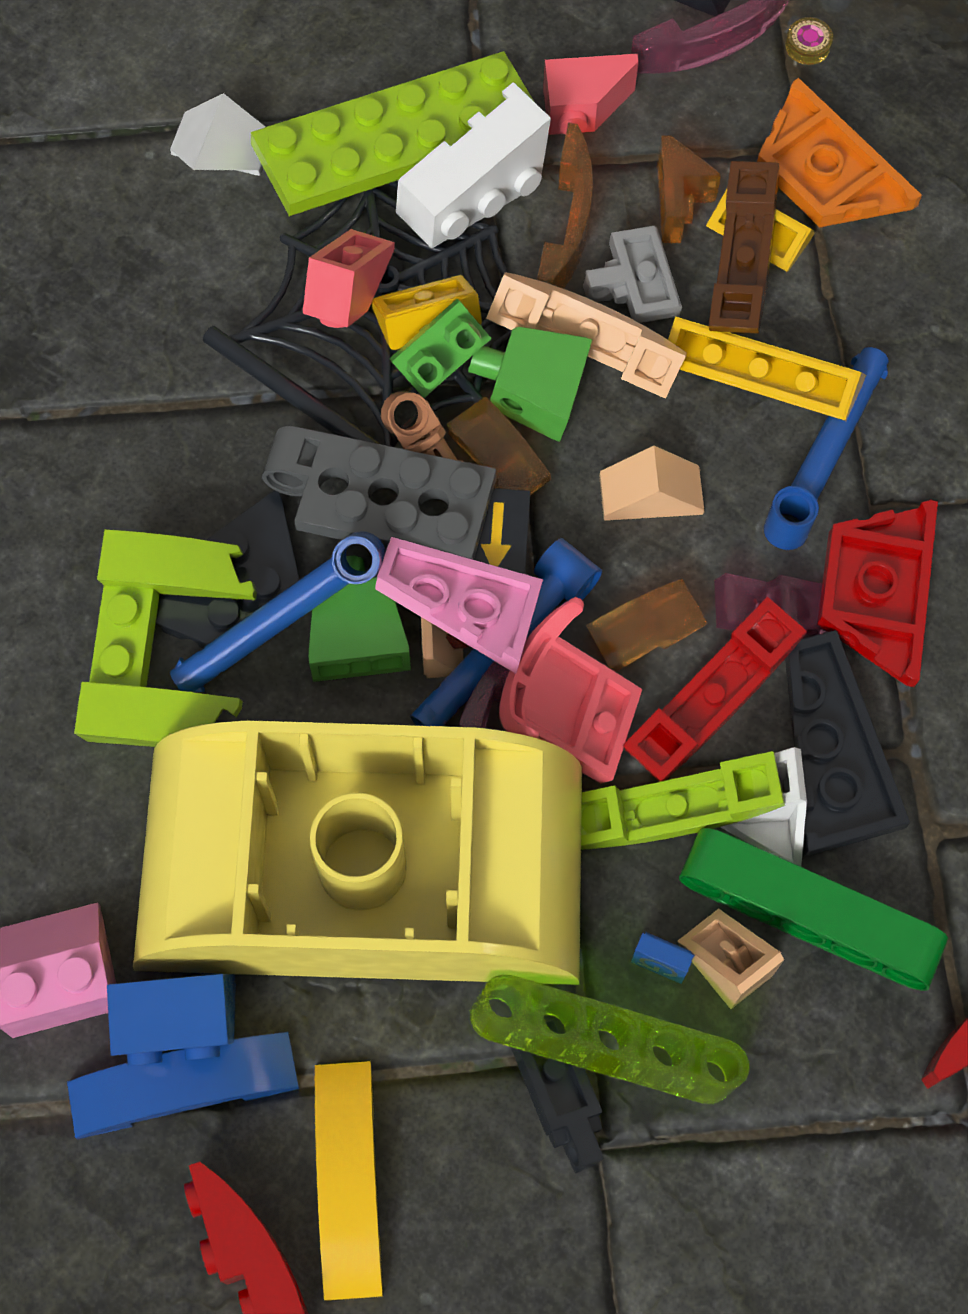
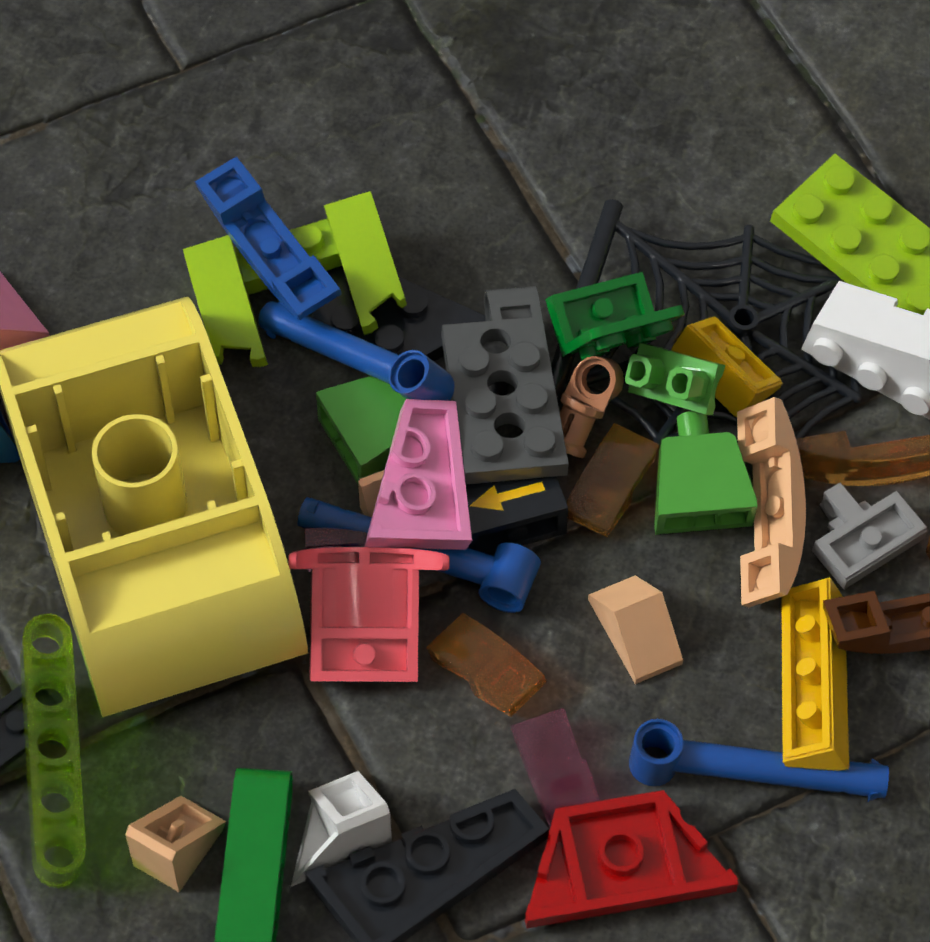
camera: 70 degrees right, 10 degrees down
(121, 645) = (265, 240): none -> blue slope
(217, 137) = (819, 134): white slope -> none
(345, 278) = (716, 279): coral slope -> none
(357, 379) = (608, 316): none -> green bracket
(662, 957) = (153, 777): blue tile -> none
(681, 805) = (304, 740): lime slope -> none
(716, 691) = (434, 745): red slope -> none

